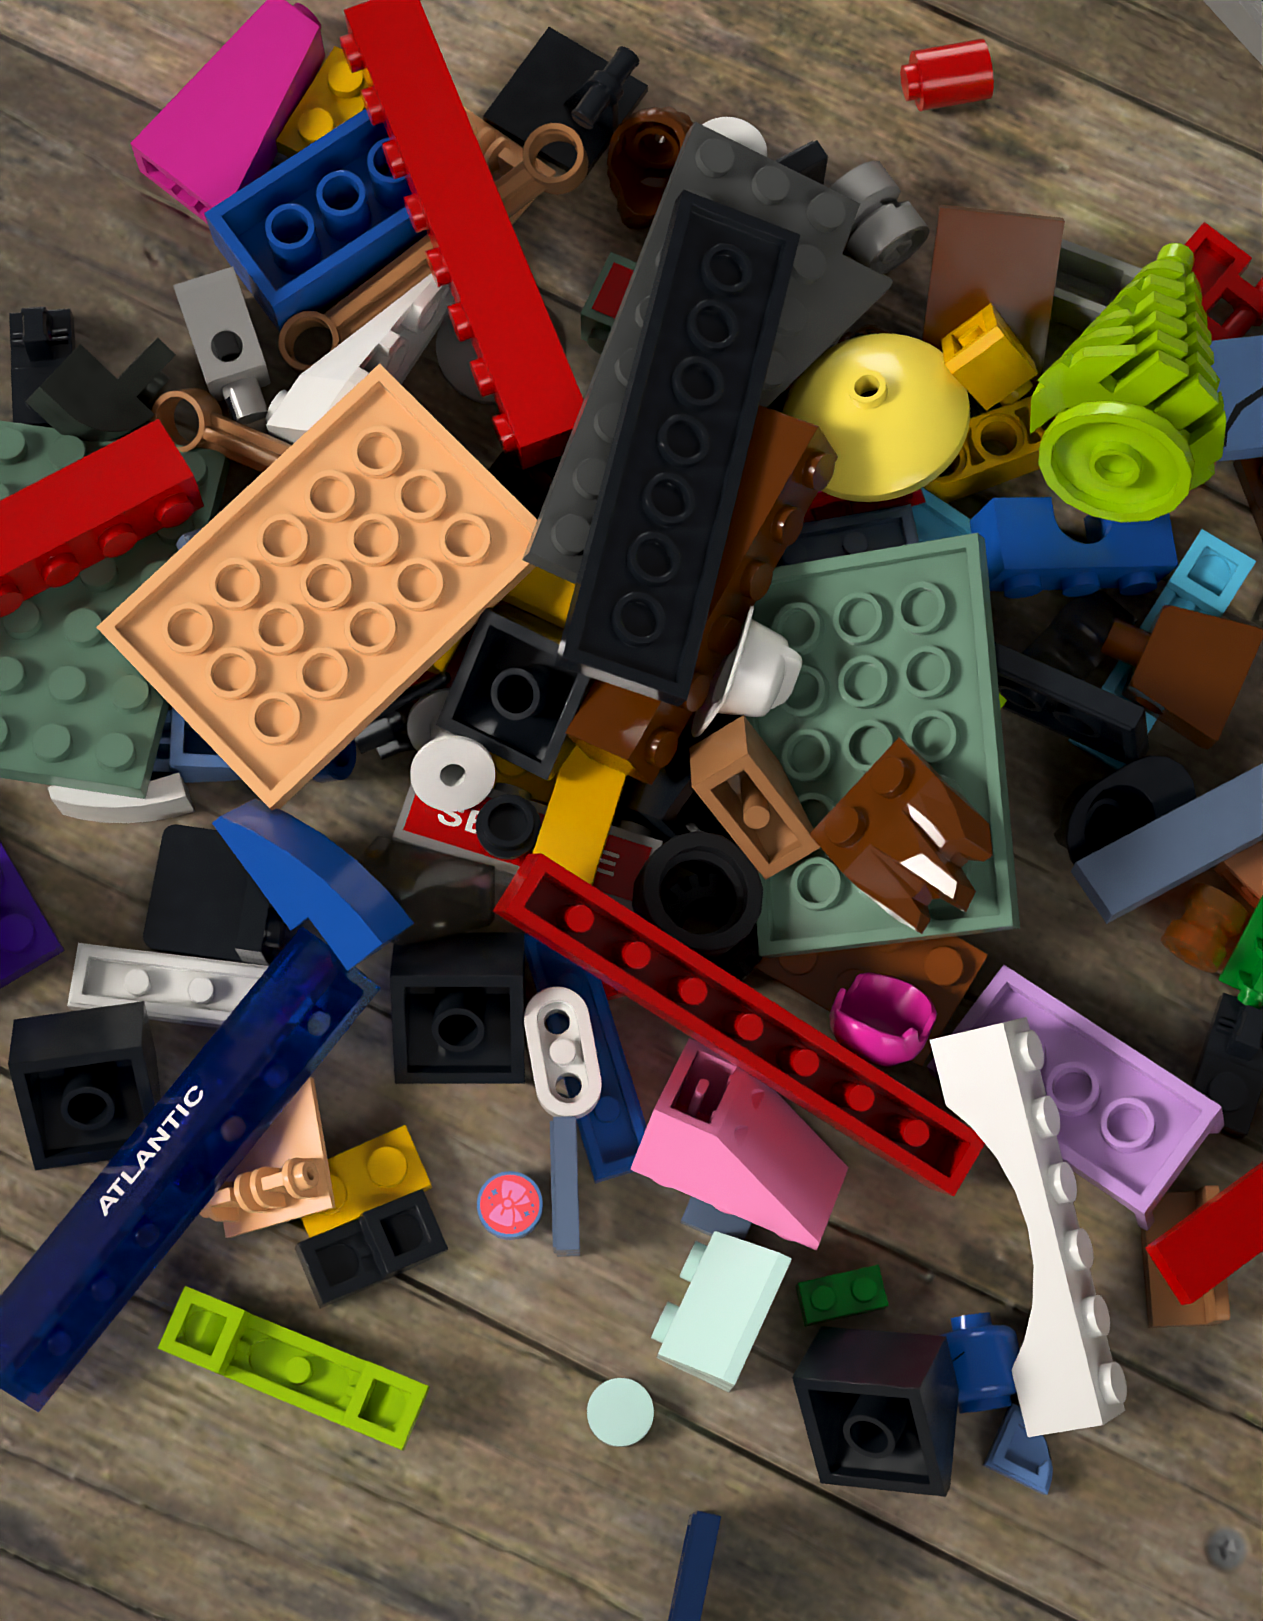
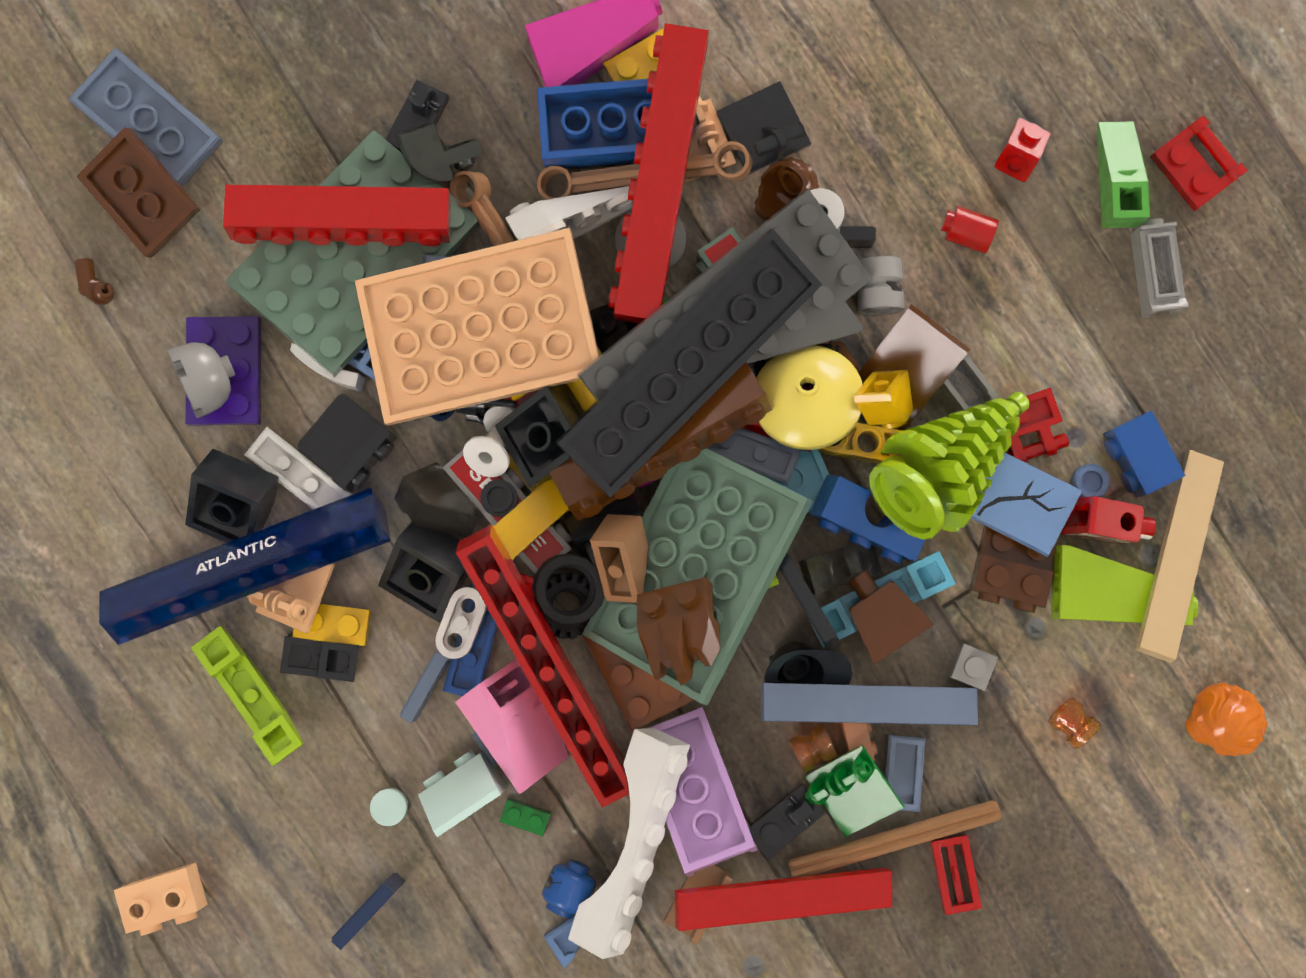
camera: 35 degrees right, 10 degrees up
(221, 329) = (510, 146): light grey torso -> none
(313, 880) = (384, 472): blue slope -> none
(510, 1205) = (396, 677): tile -> none
(752, 677) = (656, 498): white piece -> none
(880, 1409) = (506, 883): black slope -> none
(882, 1019) = (621, 702): dark pink hair -> none

